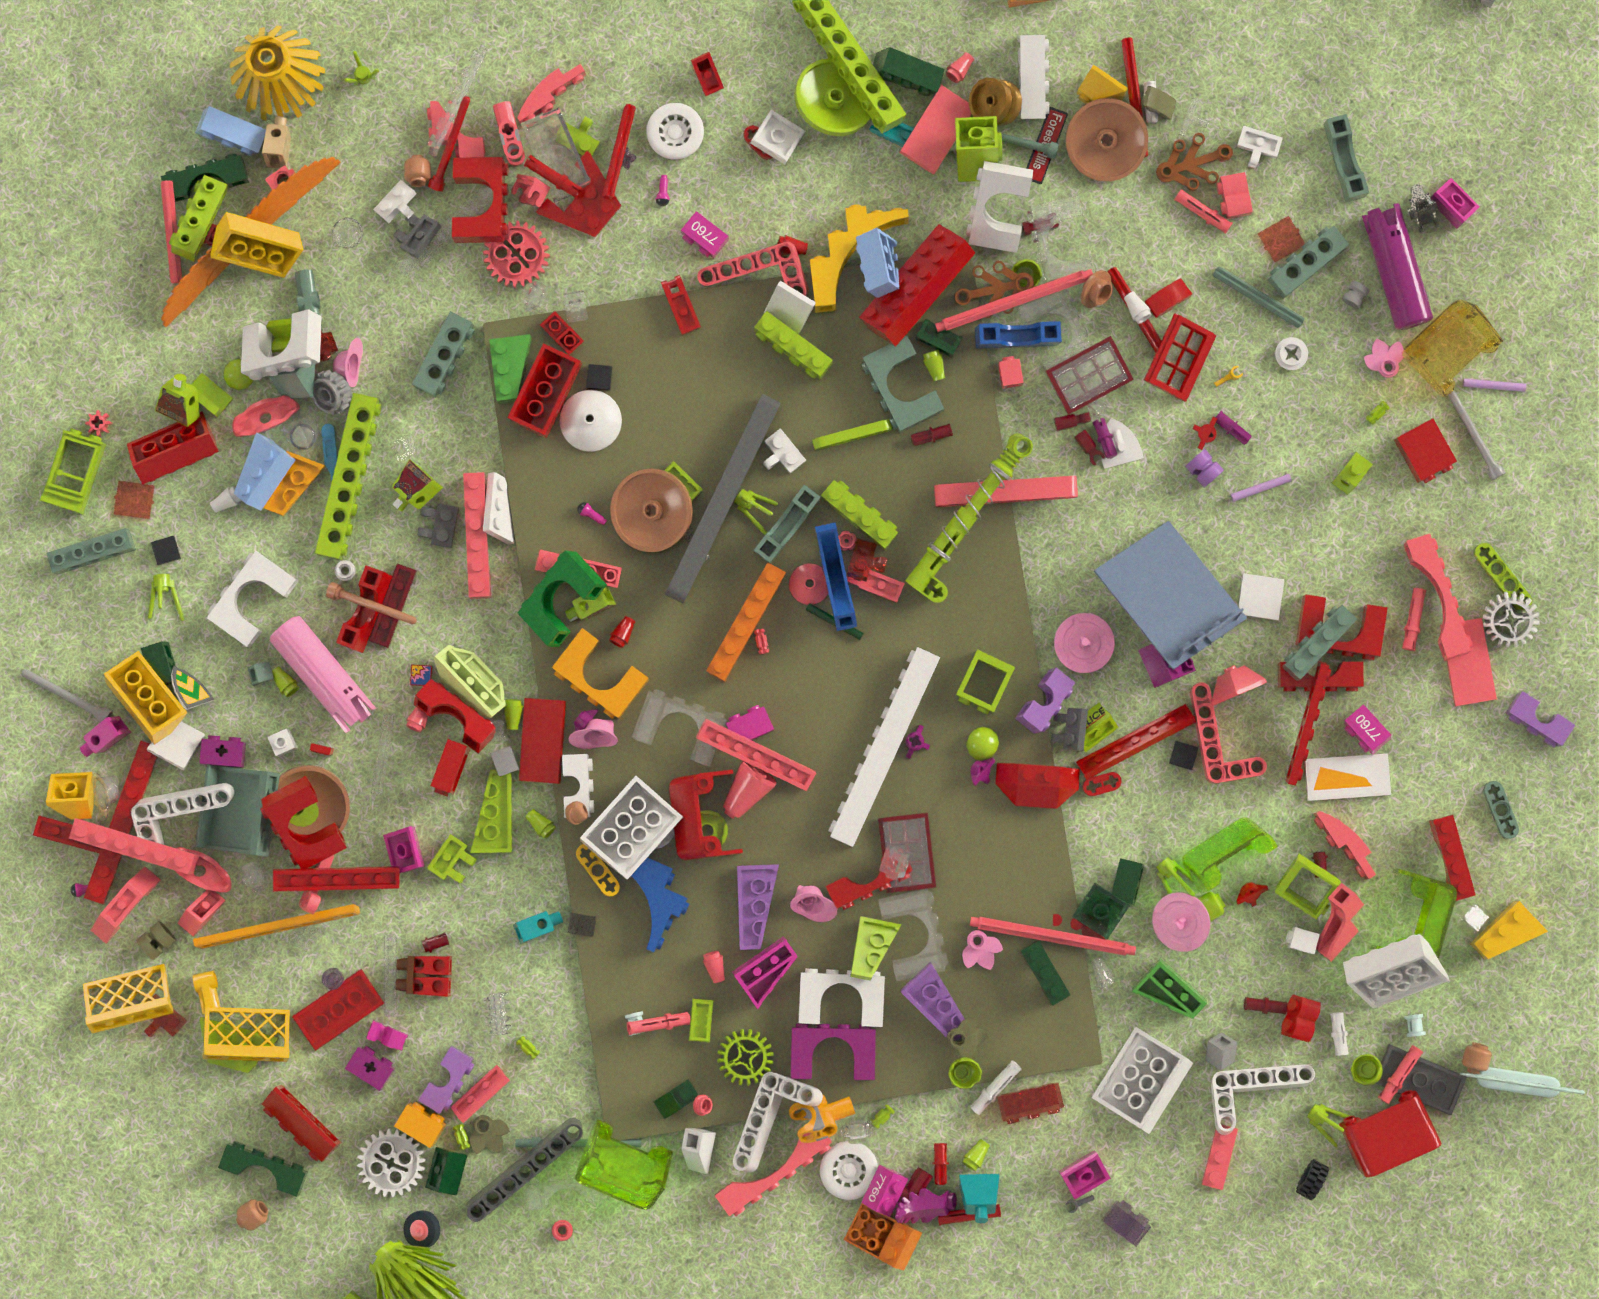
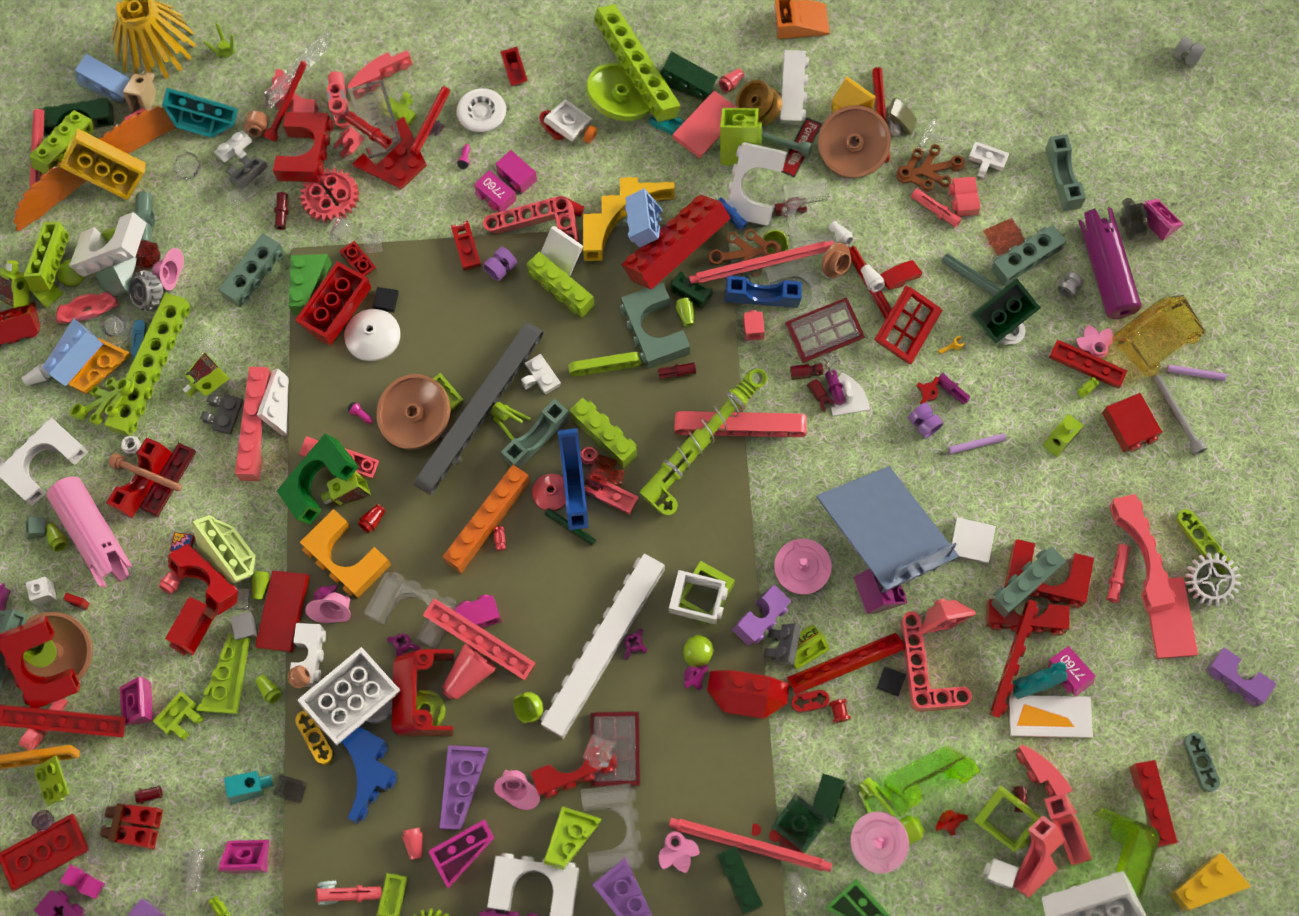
camera: 10 degrees right, 15 degrees down
(212, 362) = (46, 256): none -> lime brick
(282, 538) = (122, 388): none -> lime plant
(337, 940) = (51, 781): none -> lime hinge
(352, 165) = (198, 113): none -> teal wedge
(463, 277) = (281, 211): none -> dark red pin
(546, 994) = (245, 857): none -> dark pink slope
(673, 766) = (401, 646): none -> magenta piece
(724, 324) = (495, 268): none -> medium lavender wheel
(725, 208) = (516, 172): none -> dark pink brick
(804, 152) = (590, 134): none -> orange tile
(814, 819) = (528, 707): none -> lime hair
(957, 691) = (683, 577): none -> white window
(976, 244) = (736, 219): none -> blue pin
(1101, 255) = (841, 233): none -> white cone
(1133, 792) = (839, 711): none -> red bush
(1284, 335) = (1005, 311): none -> dark green slope
(1335, 744) = (1040, 680): none -> teal hinge
(1369, 891) = (1070, 828): none -> coral arch
(1377, 386) = (1088, 364): none -> red plate

